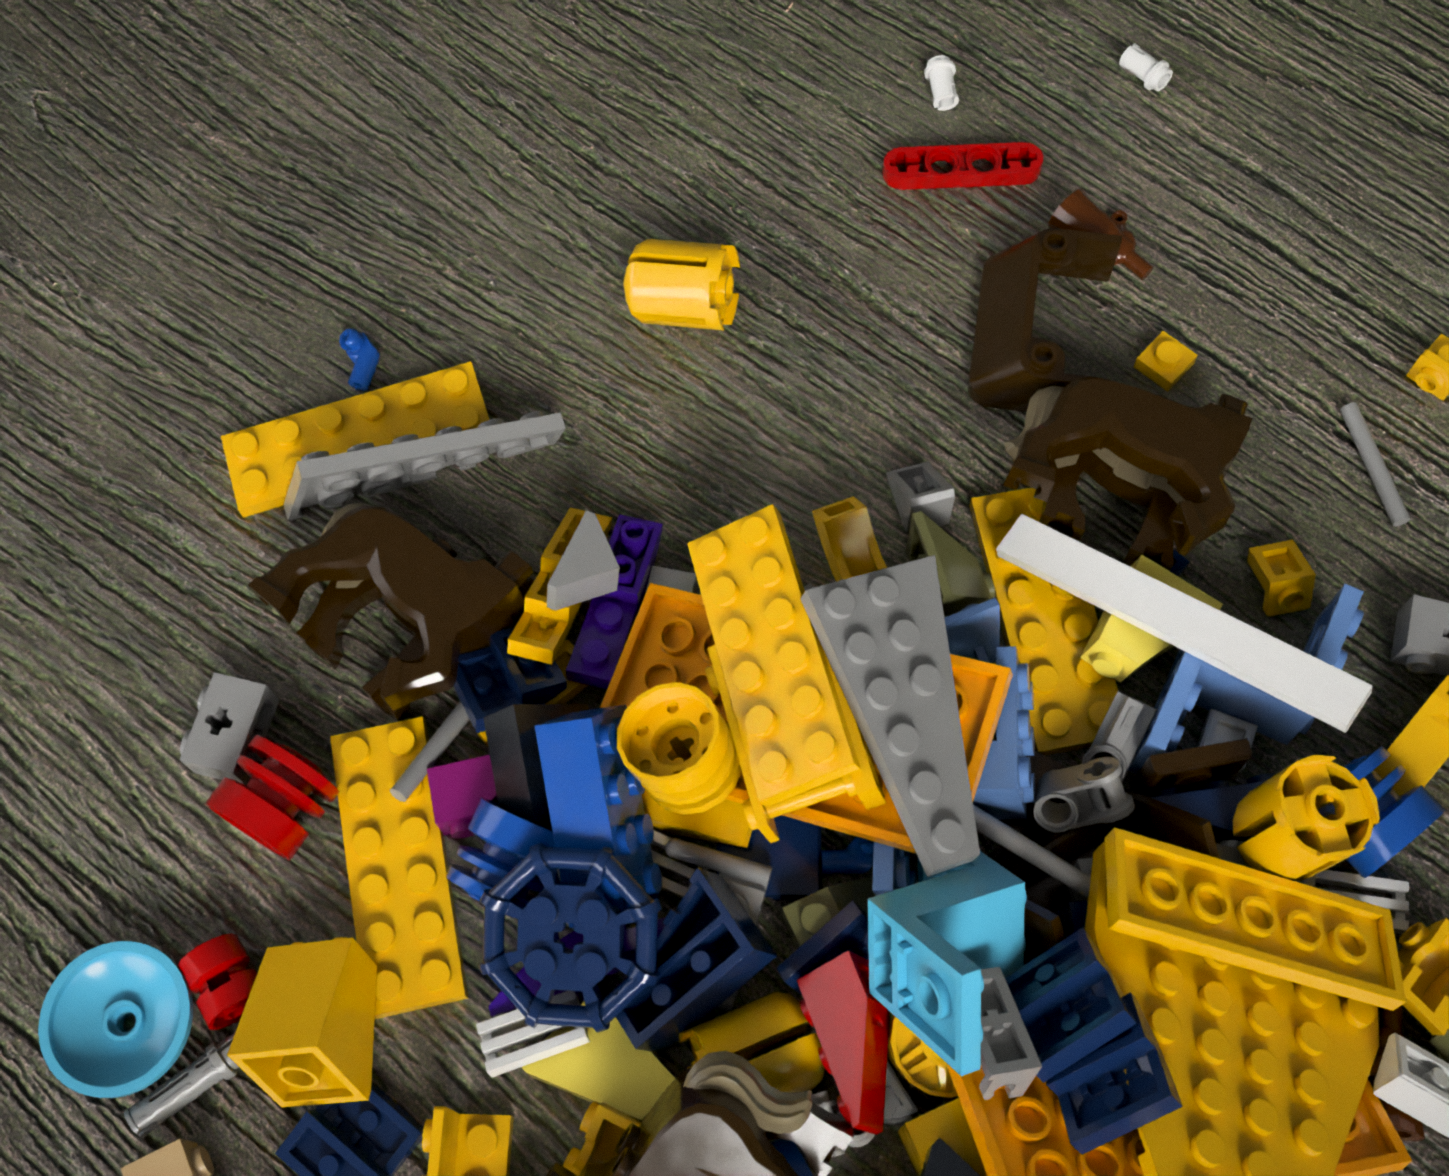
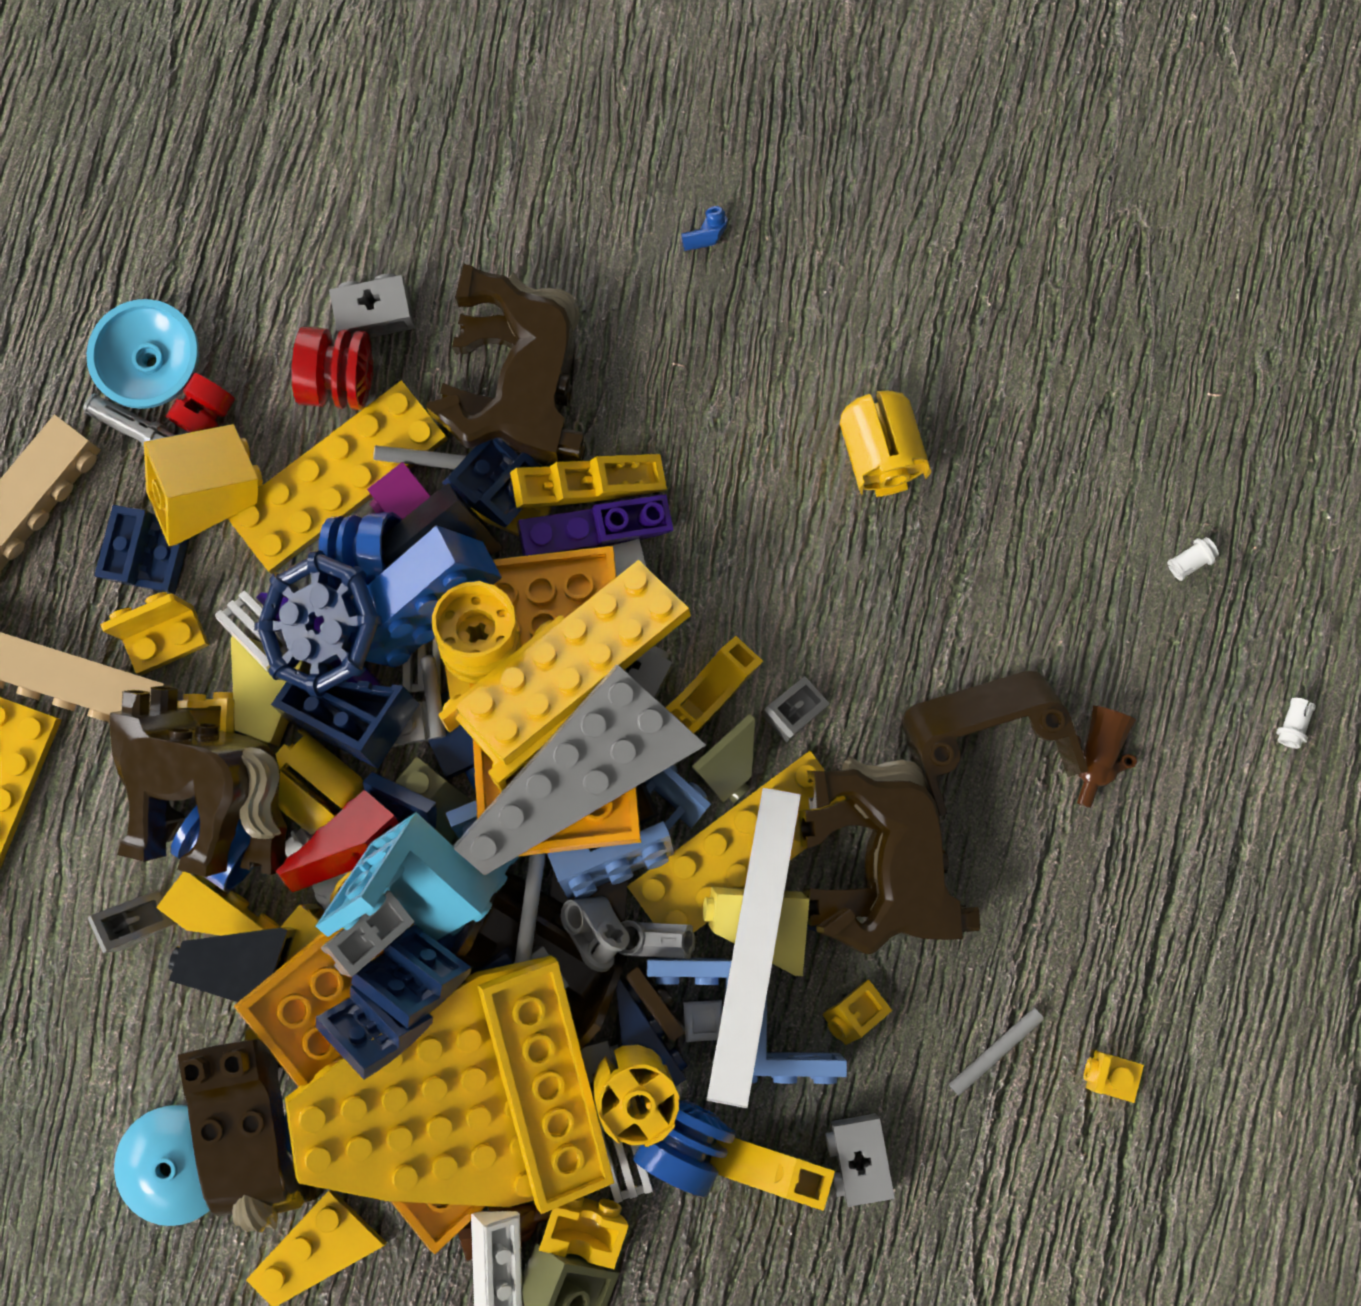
camera: 60 degrees right, 15 degrees up
(266, 454) = (640, 268): yellow plate -> none
(411, 460) = (627, 318): light grey wing -> none
(585, 568) = (594, 492): light grey slope -> none
(961, 159) = (1122, 609): red beam -> none
(1165, 361) = (1010, 851): yellow plate -> none

